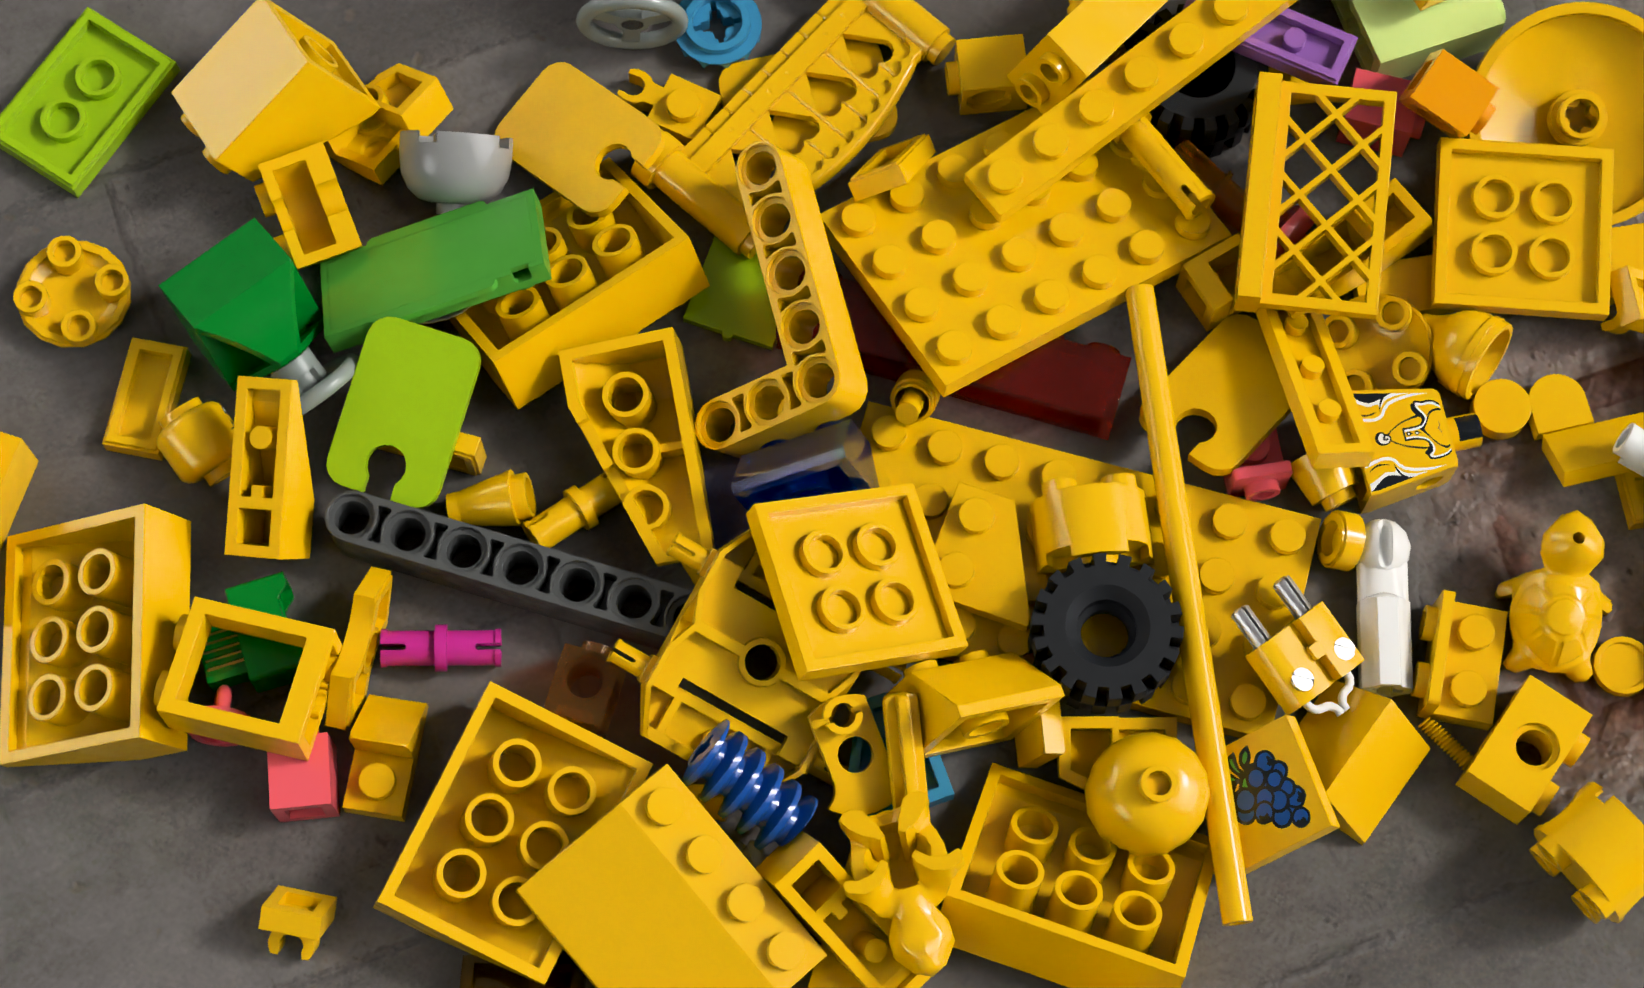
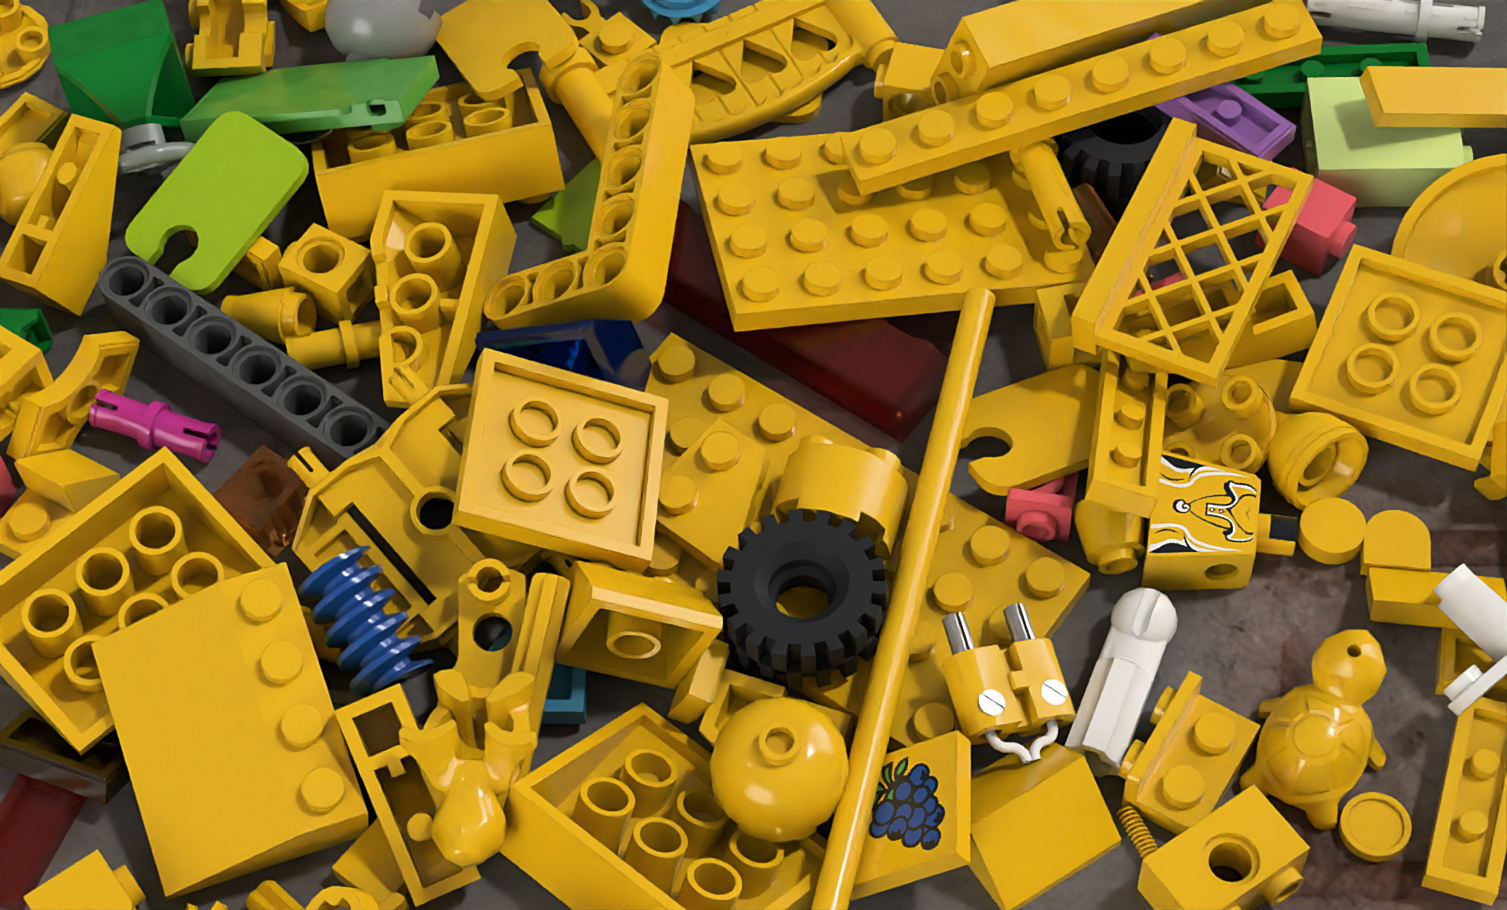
camera: 25 degrees right, 15 degrees down
(544, 464) = (332, 271): none -> yellow brick
(891, 167) = (778, 122): yellow tile -> none
(914, 397) = (712, 335): yellow cylinder -> none
(1341, 540) = (1101, 598): yellow tile -> none
(1450, 95) = (1375, 203): light orange brick -> none

